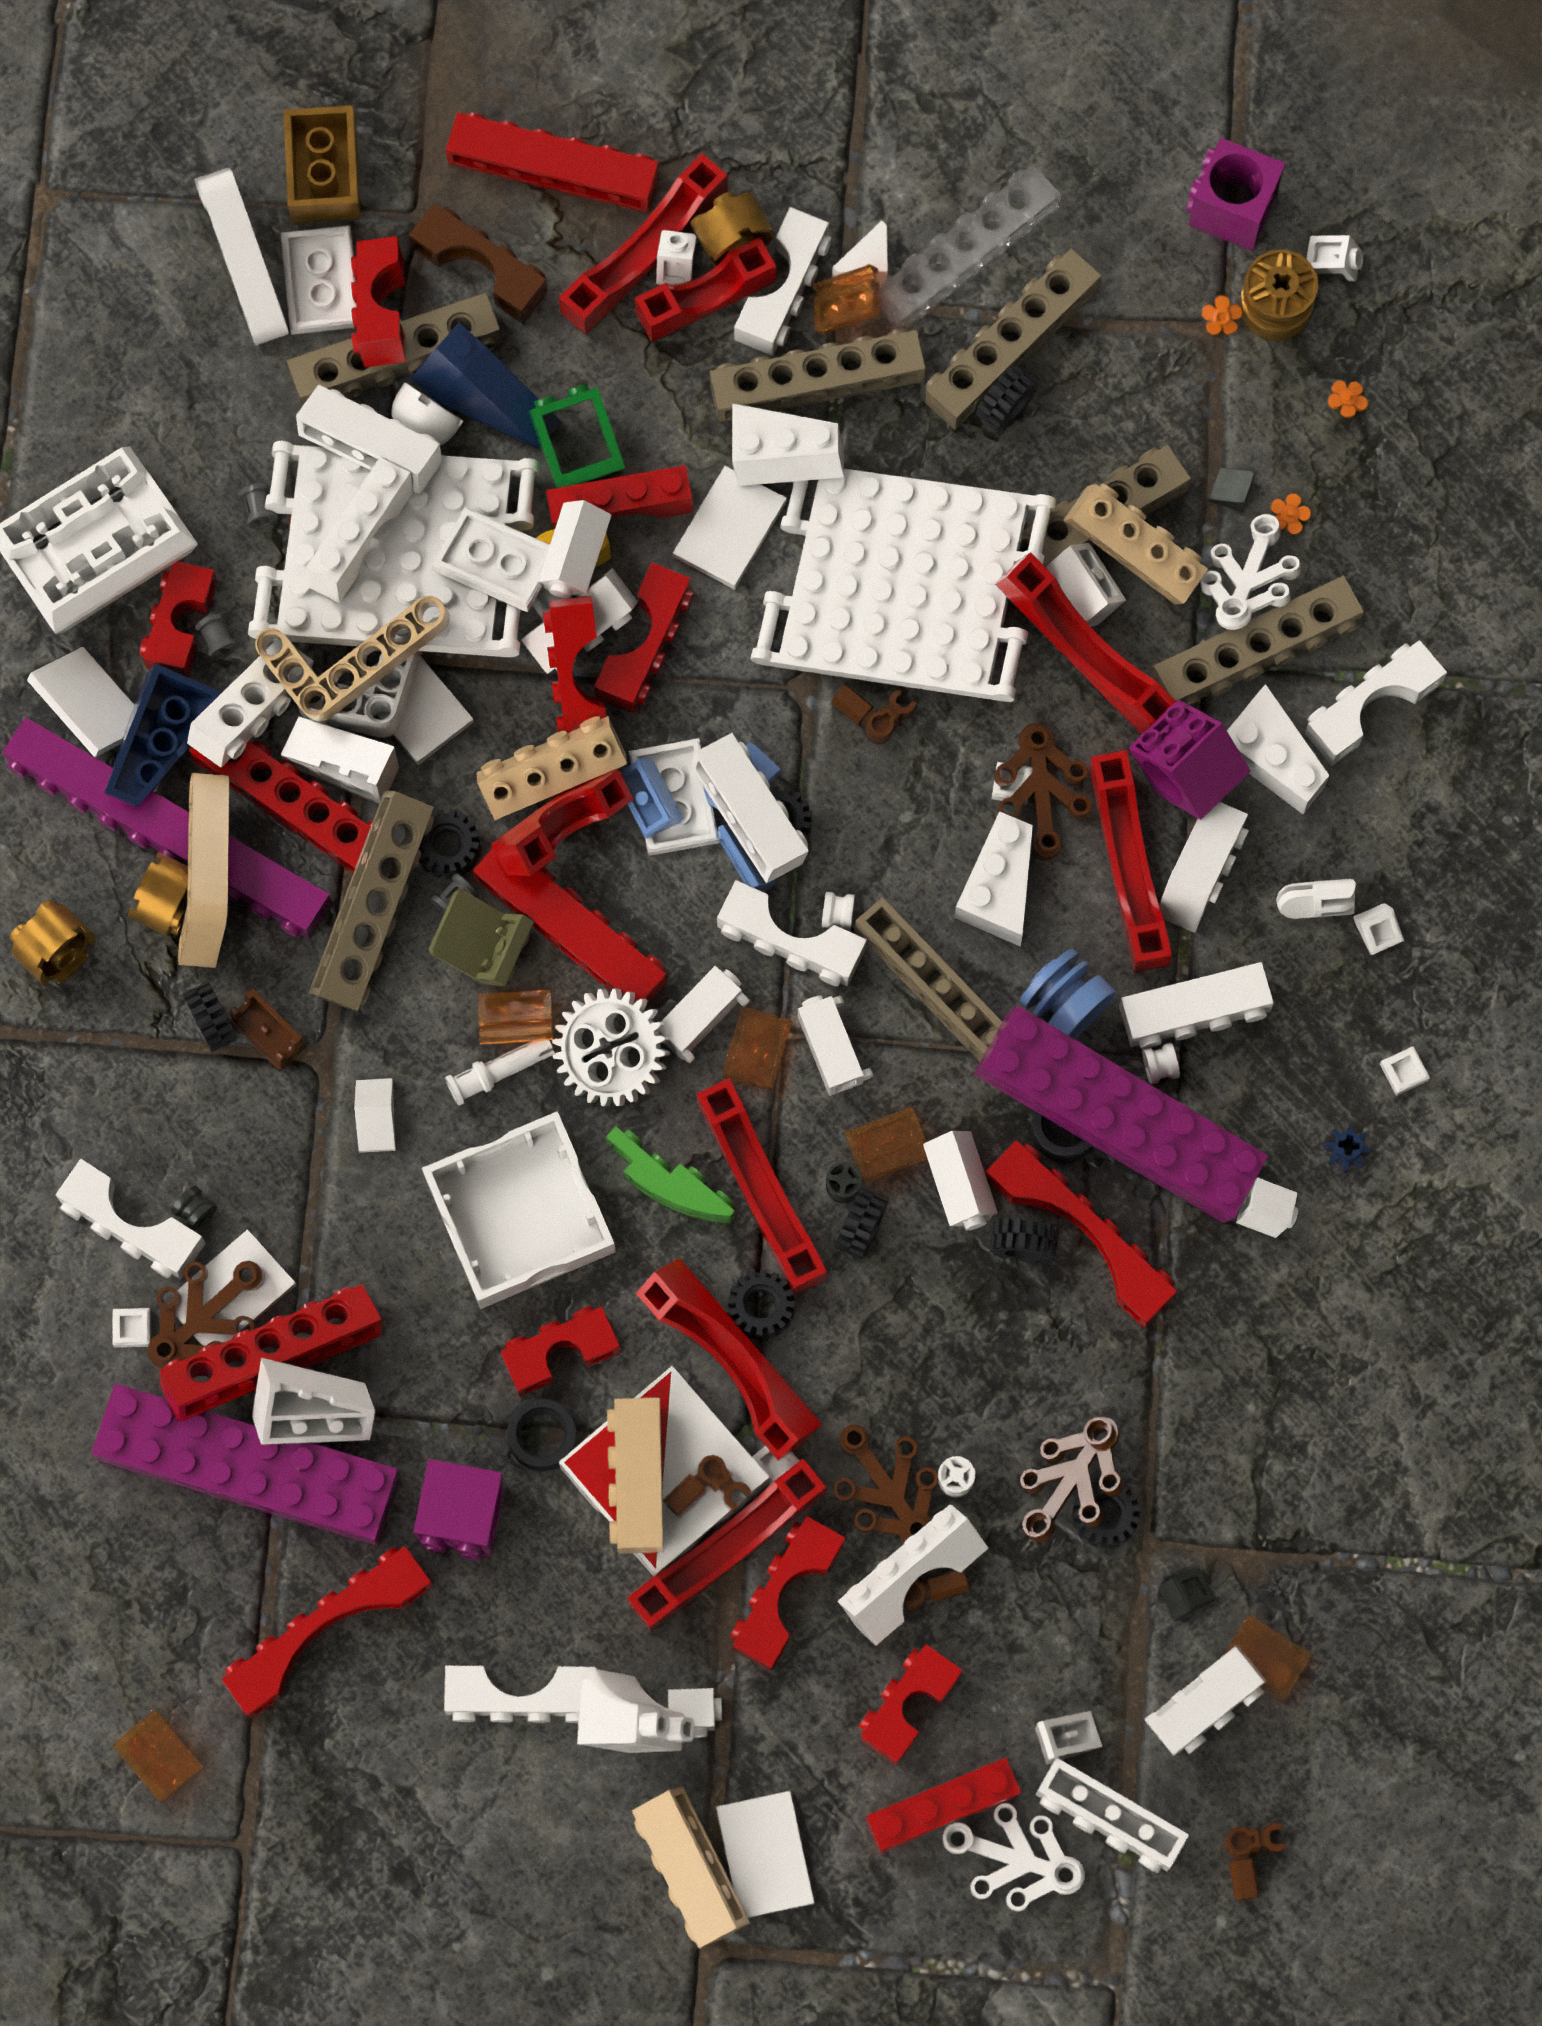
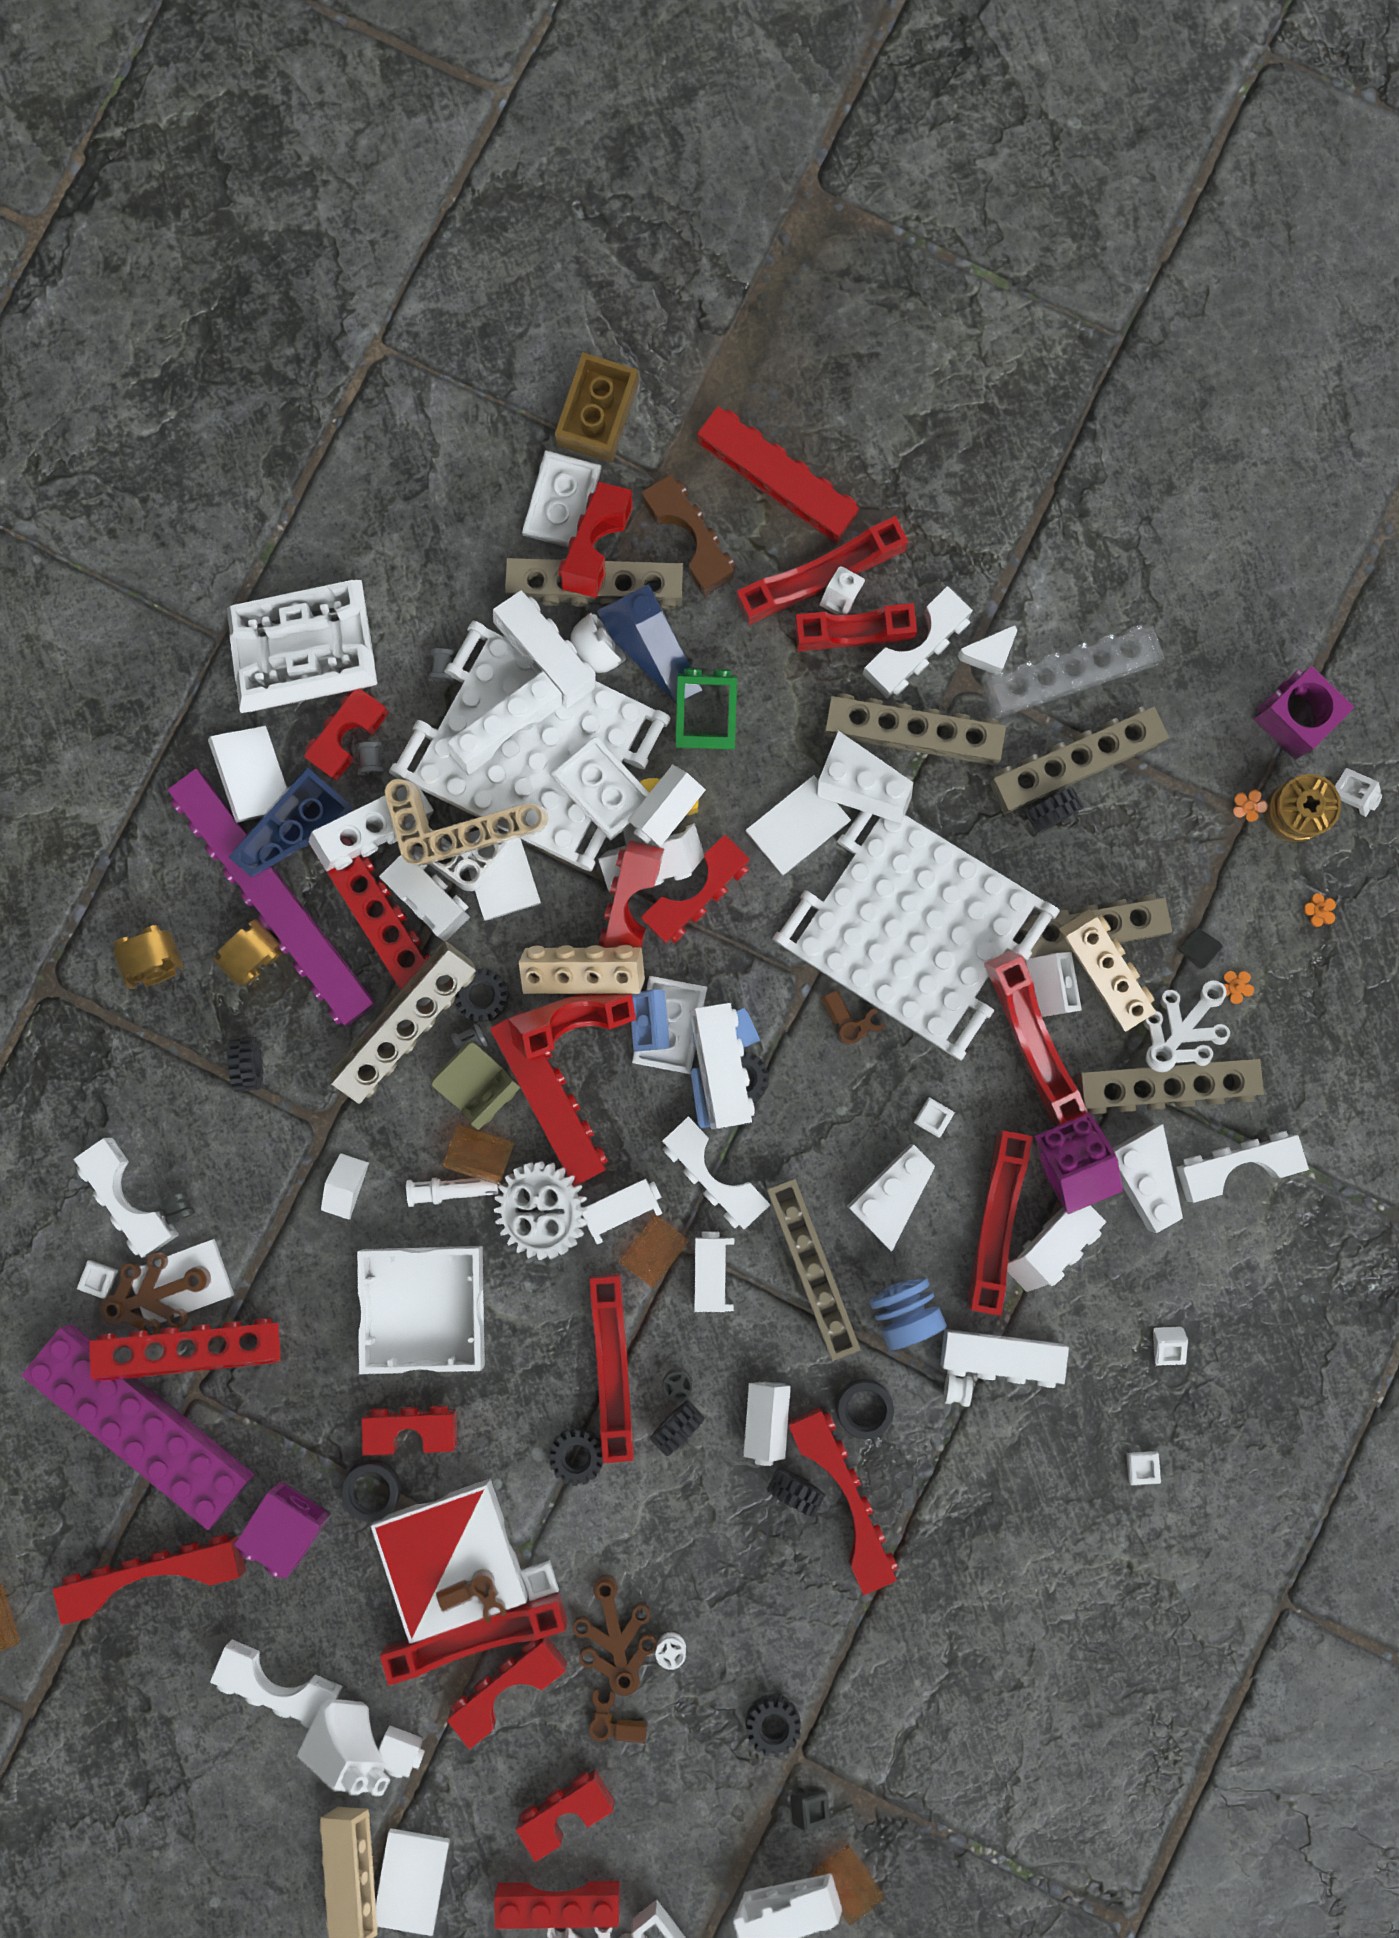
camera: 20 degrees right, 10 degrees up
(207, 871) = (285, 945): tan beam -> none
(242, 255) = (504, 407): white beam -> none
(266, 1030) = (287, 1088): reddish brown hinge -> none
(309, 1406) = (199, 1408): white wedge -> none
(637, 1475) = (422, 1571): tan brick -> none
(652, 493) = (738, 774): red arch -> none
(681, 1190) = (549, 1342): bright green slope -> none
(731, 225) = (895, 584): pearl gold brick -> none
(775, 1409) = (554, 1549): red arch -> none
(838, 910) = (758, 1168): white wheel -> none
(846, 299) = (961, 678): clear orange plate -> none
(878, 1599) = (635, 1705): white arch -> none
(887, 1144) = (722, 1368): clear orange plate -> none
(1041, 784) = (955, 1129): reddish brown plant -> none
(1067, 1736) = (673, 1888): white slope -> none
(1073, 1475) = (761, 1691): plant -> none
(1120, 1114) = (909, 1427): magenta brick -> none
(1268, 1208) = (993, 1540): white brick -> none
(1317, 899) = (1132, 1307): white arm -> none
(1338, 1152) = (1075, 1524): dark blue gear -> none

